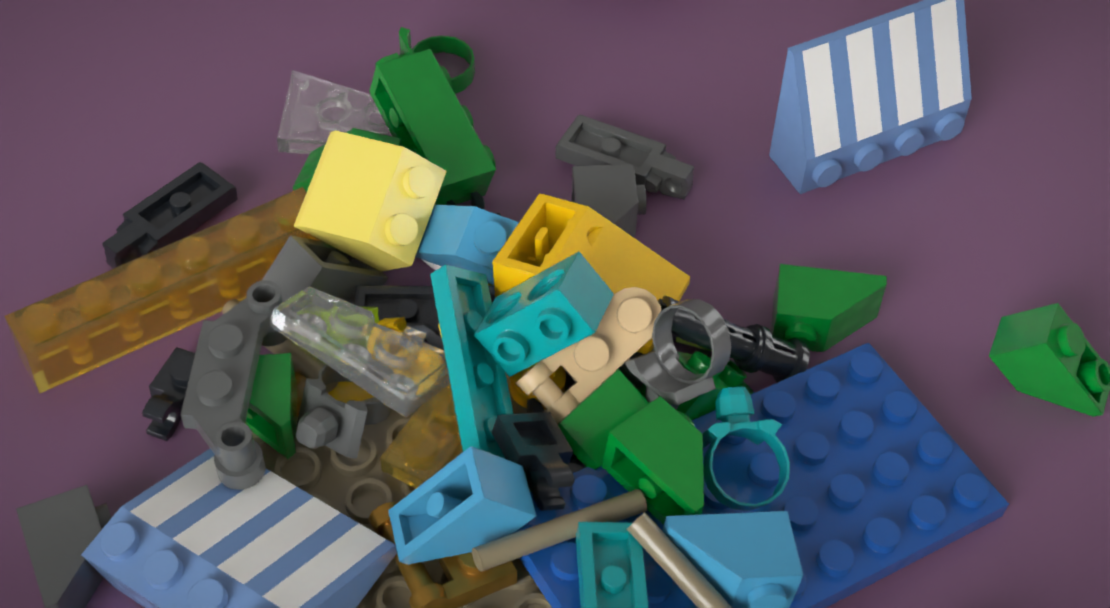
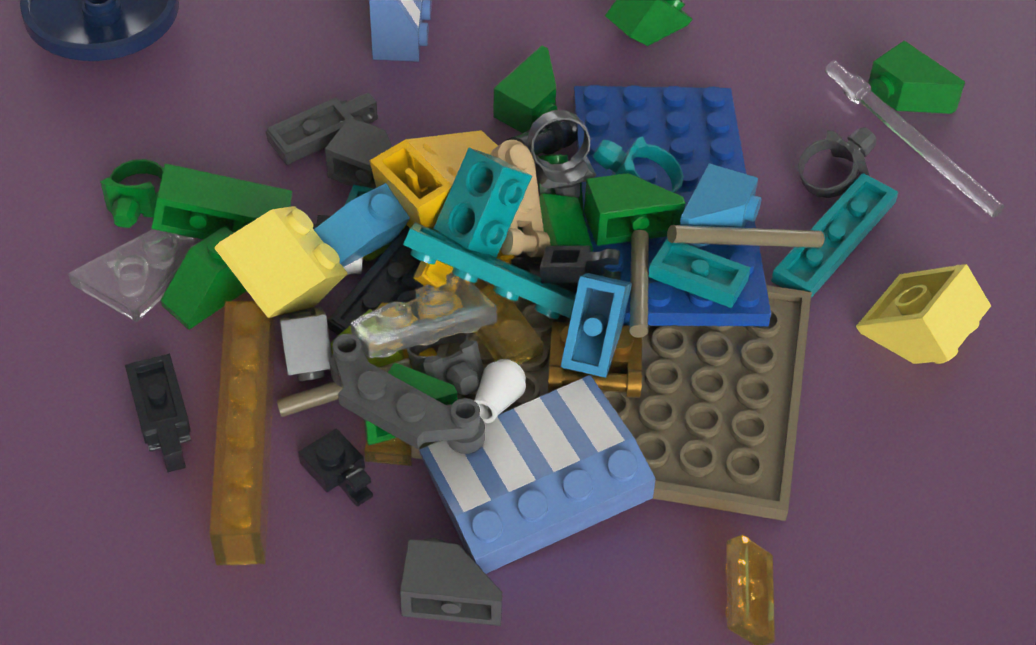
camera: 60 degrees left, 0 degrees up
(326, 468) = (499, 388): none -> white cone

